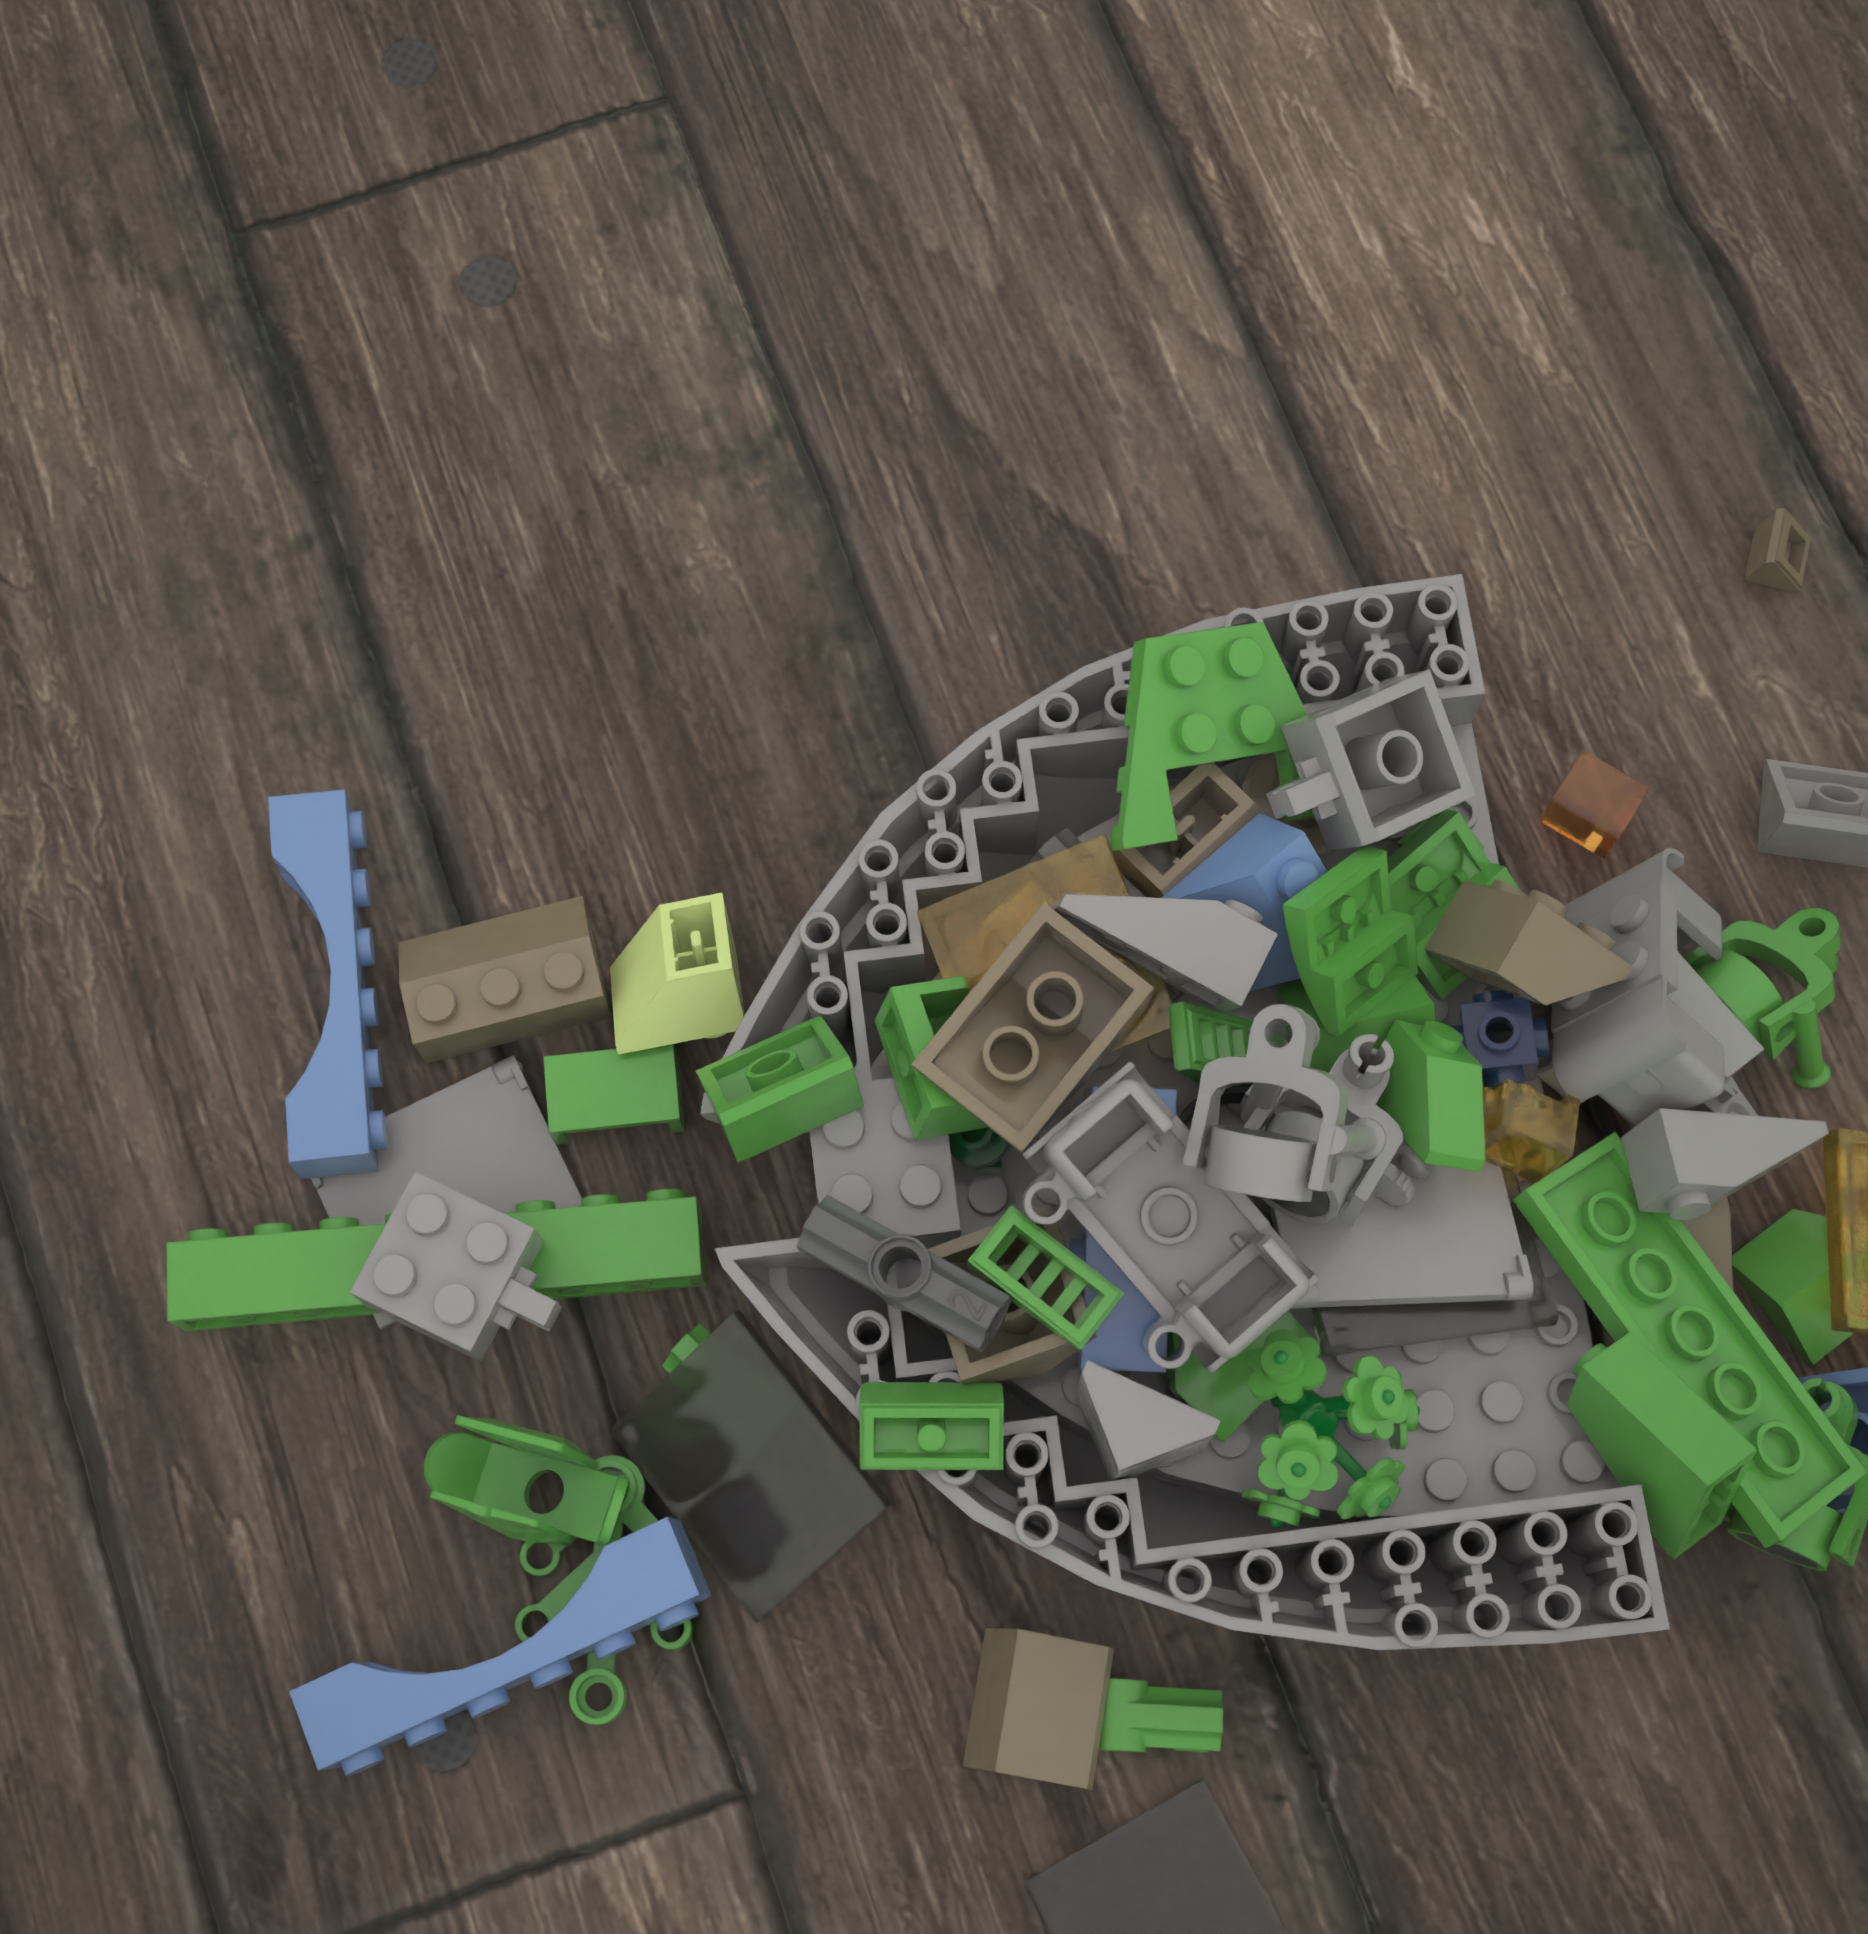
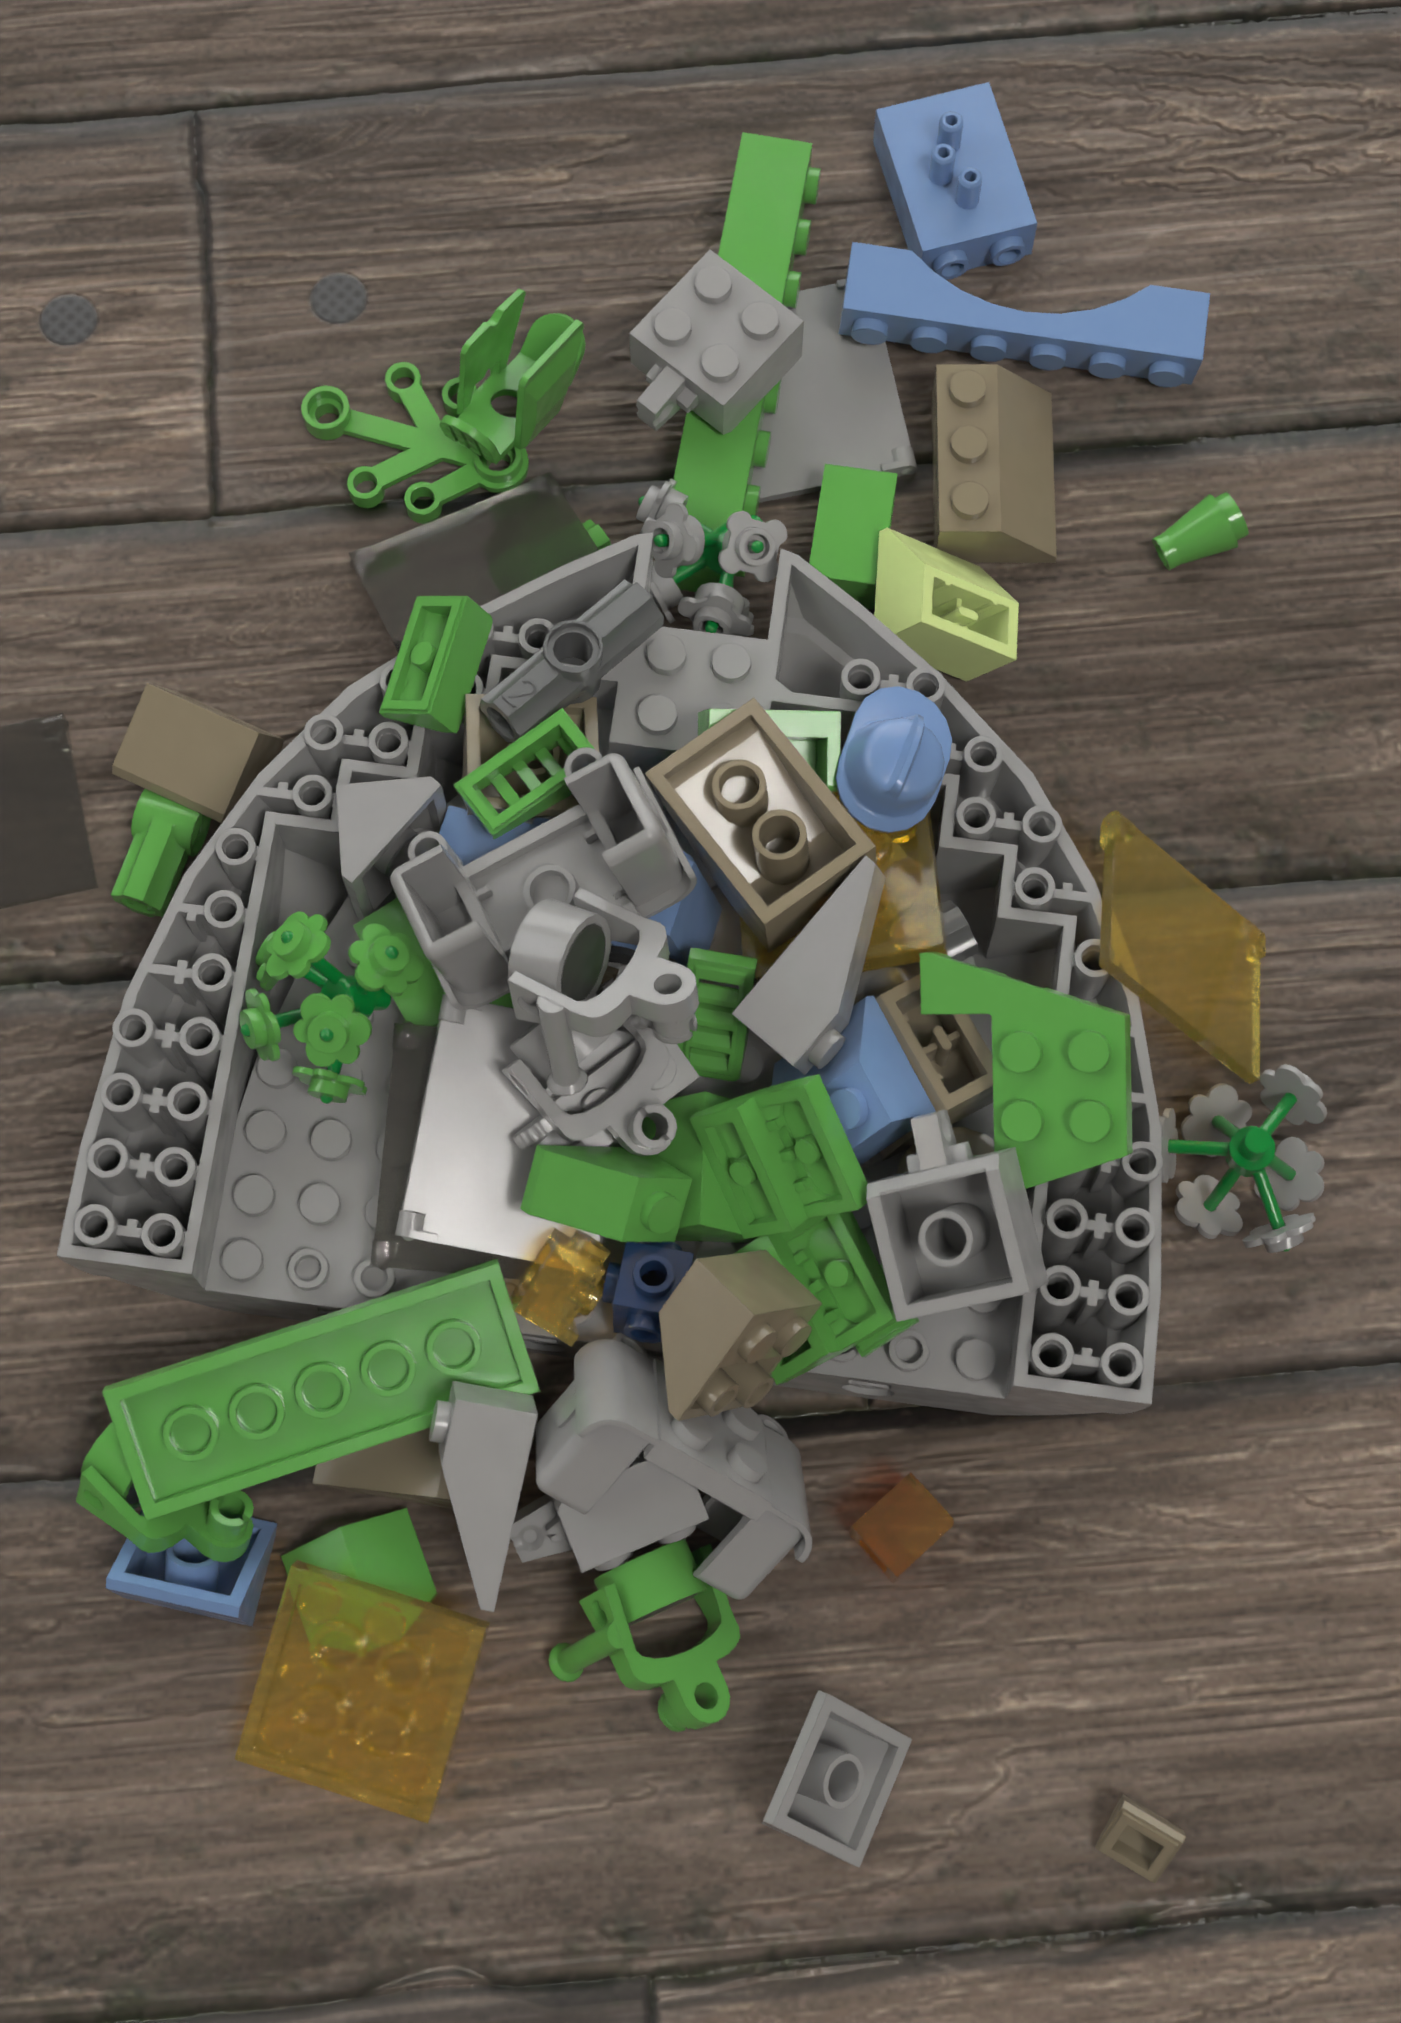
camera: 105 degrees right, 0 degrees up
(175, 1091) = (955, 181): none -> medium blue piece
(372, 1705) = (401, 436): medium blue arch -> none
(525, 760) = (1203, 531): none -> bright green cone
(701, 1211) = (682, 541): none -> light grey plant
(781, 1087) = (780, 605): bright green slope -> none
(915, 931) = (893, 759): none -> medium blue piece
(995, 663) = (1180, 947): none -> clear yellow piece
(1165, 566) = (1279, 1176): none -> light grey plant
(1659, 1437) = (231, 1310): bright green slope -> none

